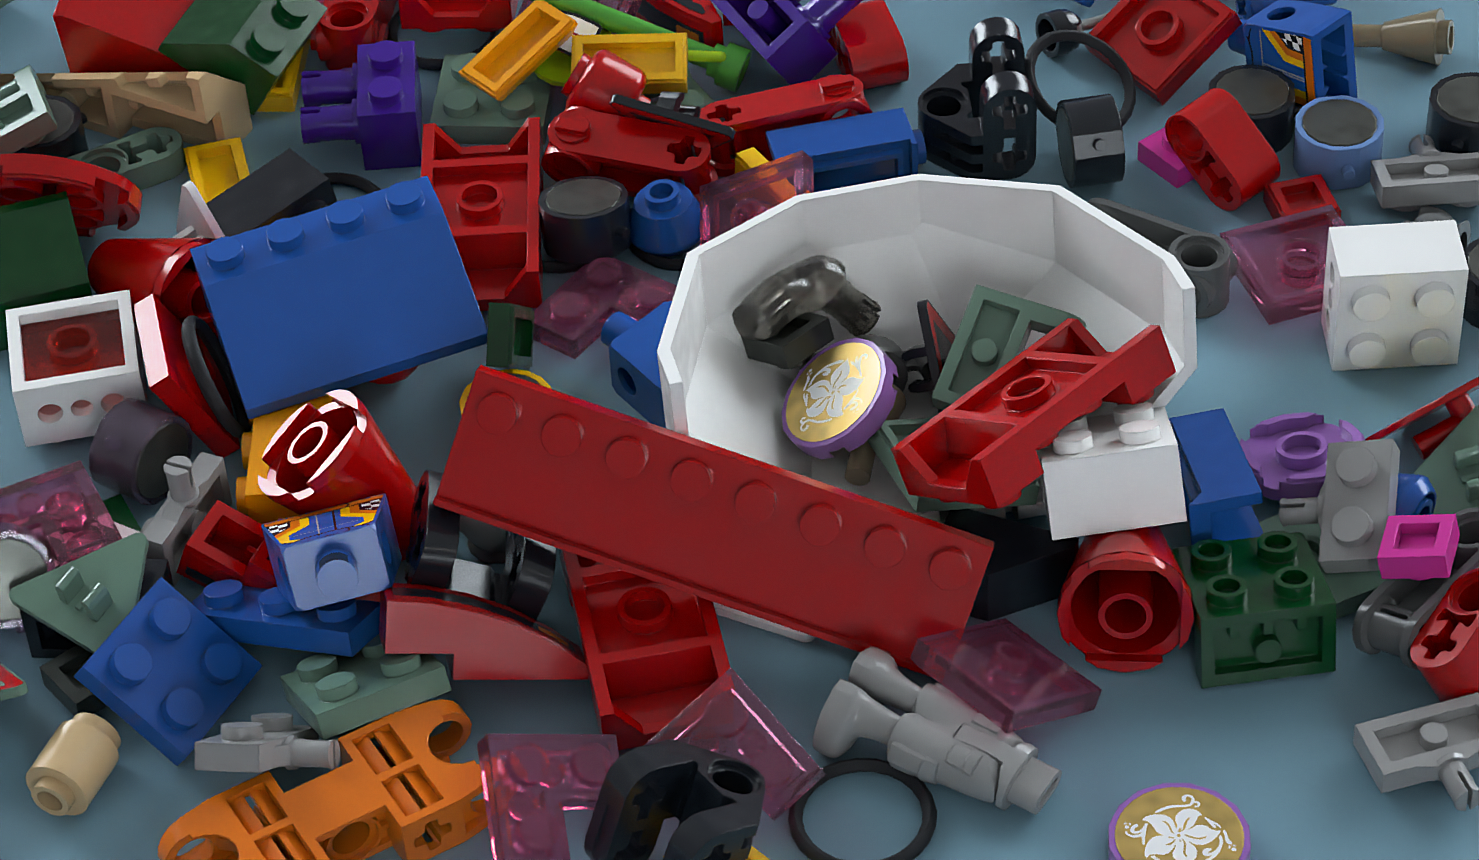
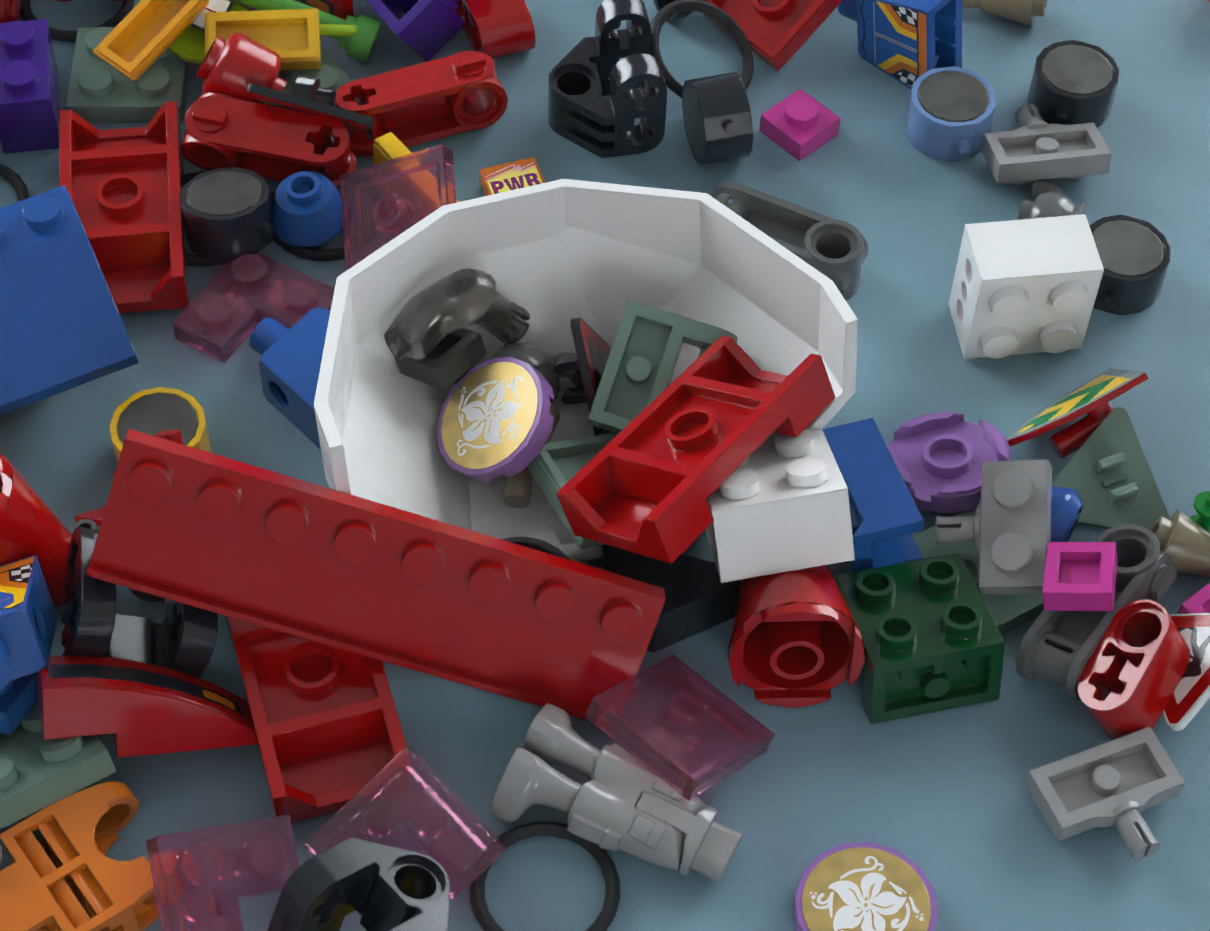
camera: 10 degrees left, 10 degrees up
(510, 336) = (158, 353): dark green tile -> none
(854, 148) = (486, 130): blue window -> none
(1222, 149) = (844, 125): red beam -> none
(1265, 97) = (865, 80): piece -> none
(1284, 262) = (916, 243): clear pink plate -> none
(1298, 196) = (920, 180): red tile -> none

